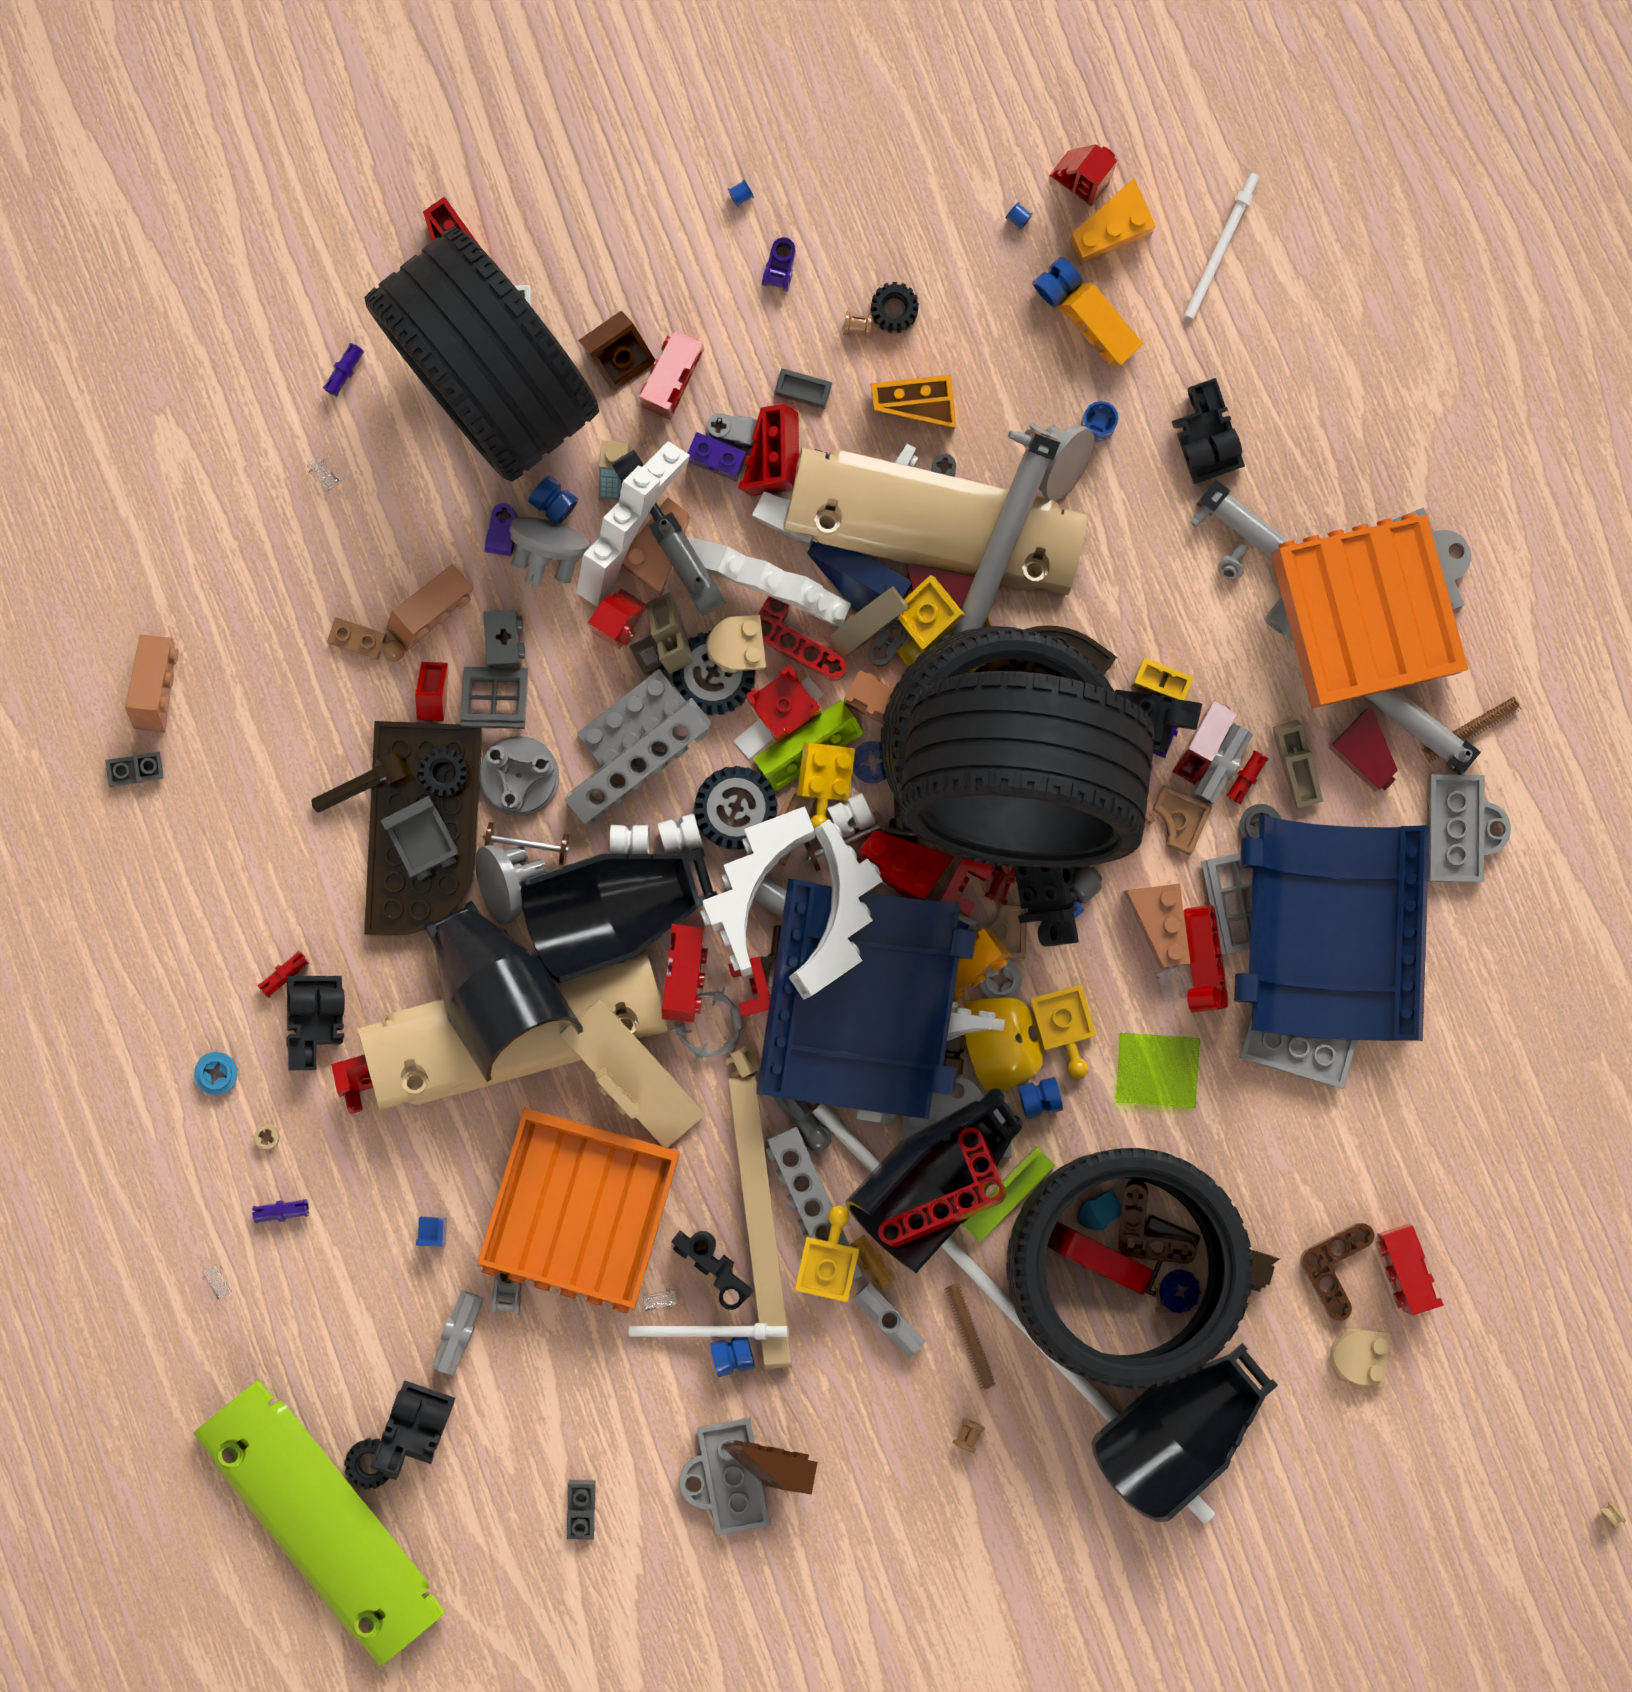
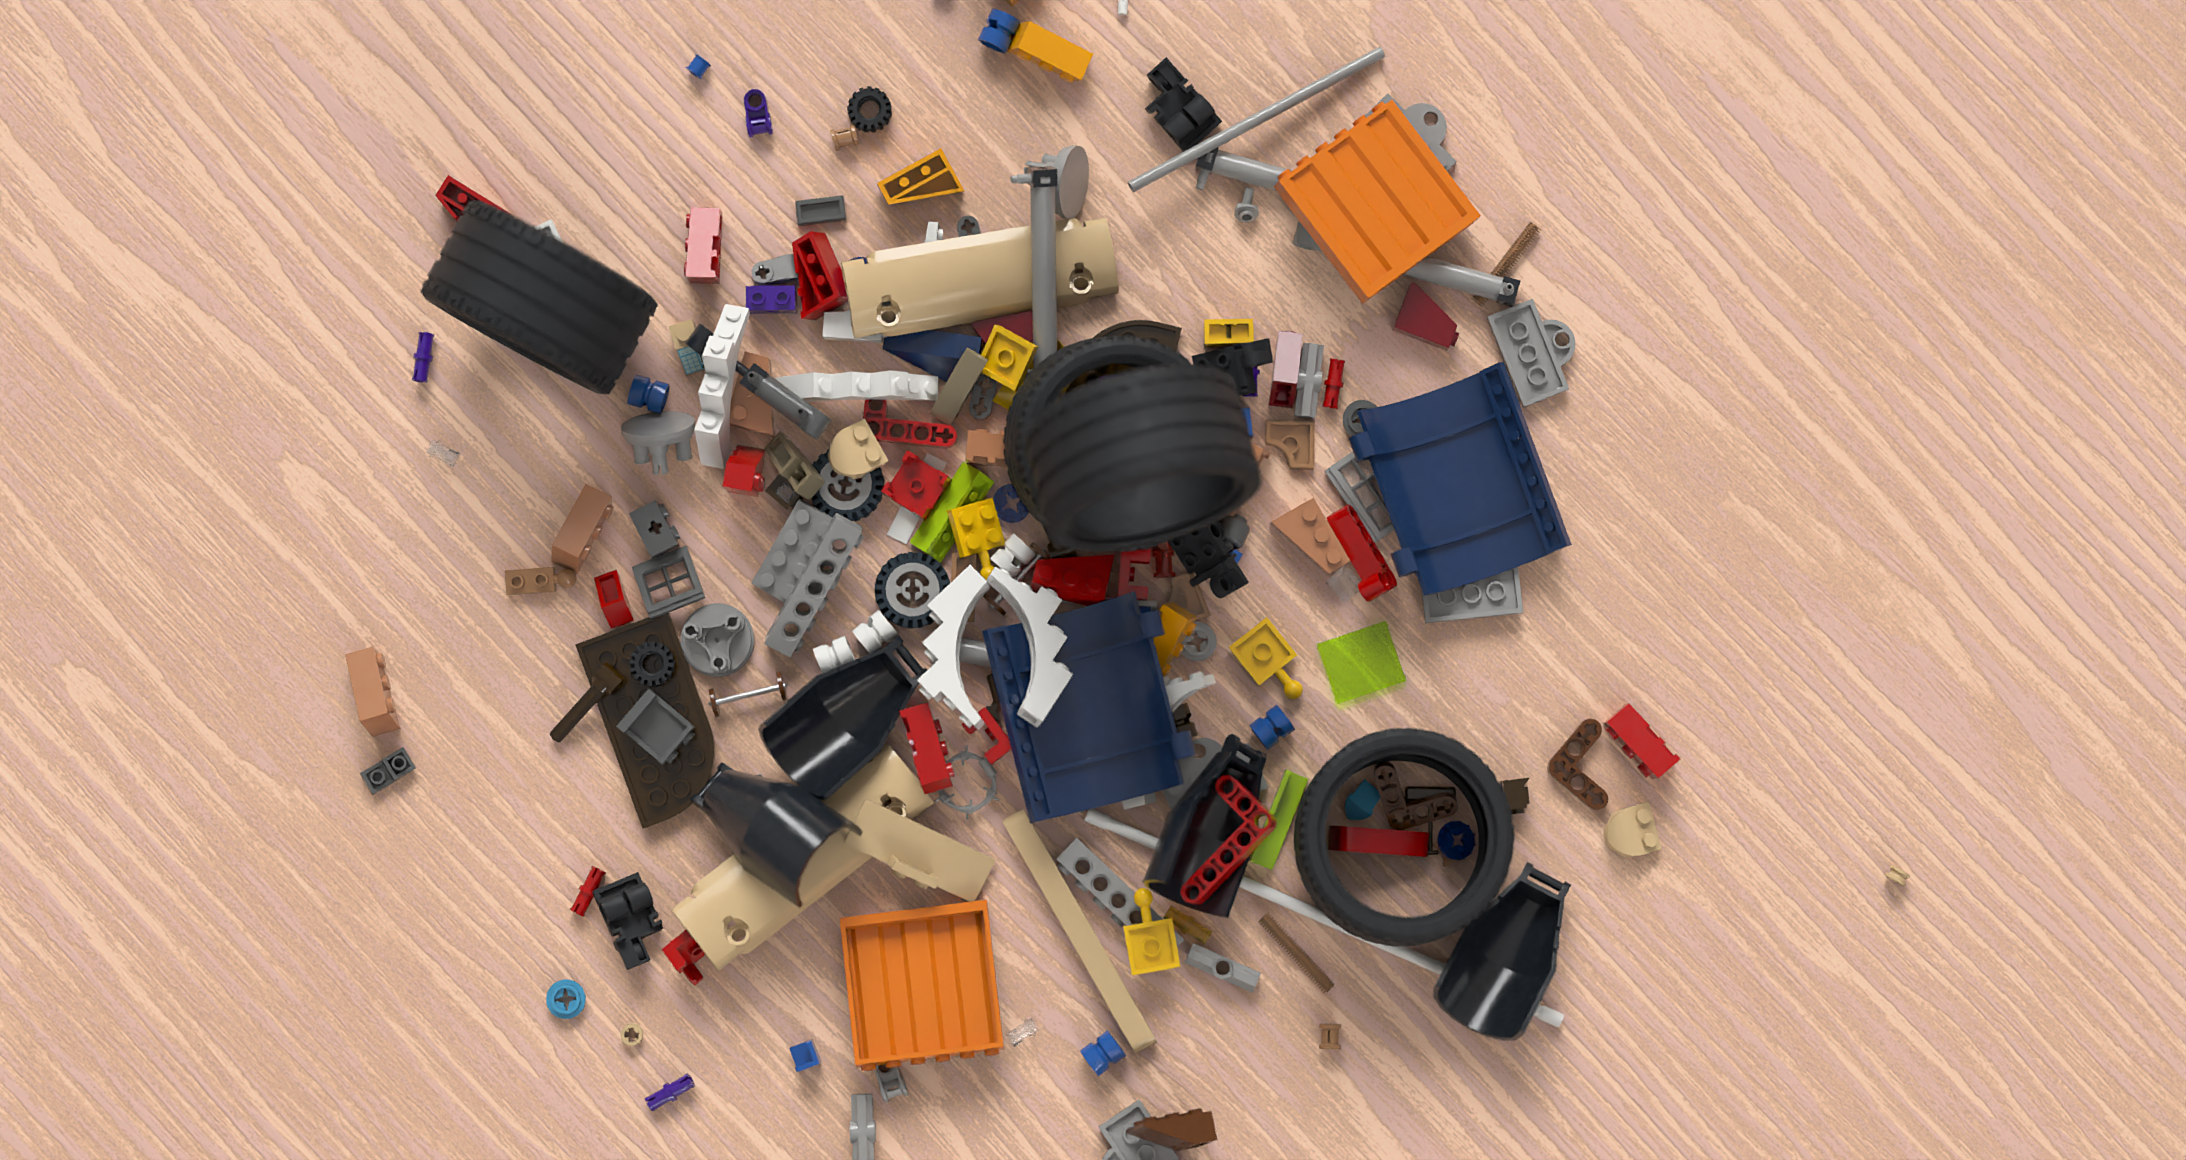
camera: 20 degrees left, 0 degrees up
(498, 534) = (614, 442): dark purple piece -> none
(501, 879) = (740, 734): light grey piece -> none
(617, 350) = (649, 244): reddish brown slope -> none
(708, 1263) = (1049, 984): black plate -> none
(745, 1061) = (1010, 801): tan tile -> none
(760, 1331) = (1117, 1022): white bar -> none
(799, 1113) = (1073, 825): dark grey piece -> none
(996, 1054) = (1219, 706): yellow piece -> none
(1101, 419) = (1084, 133): blue wheel -> none
(1280, 478) = (1256, 119): none -> light grey piece
(1298, 763) = (1371, 354): dark tan slope -> none

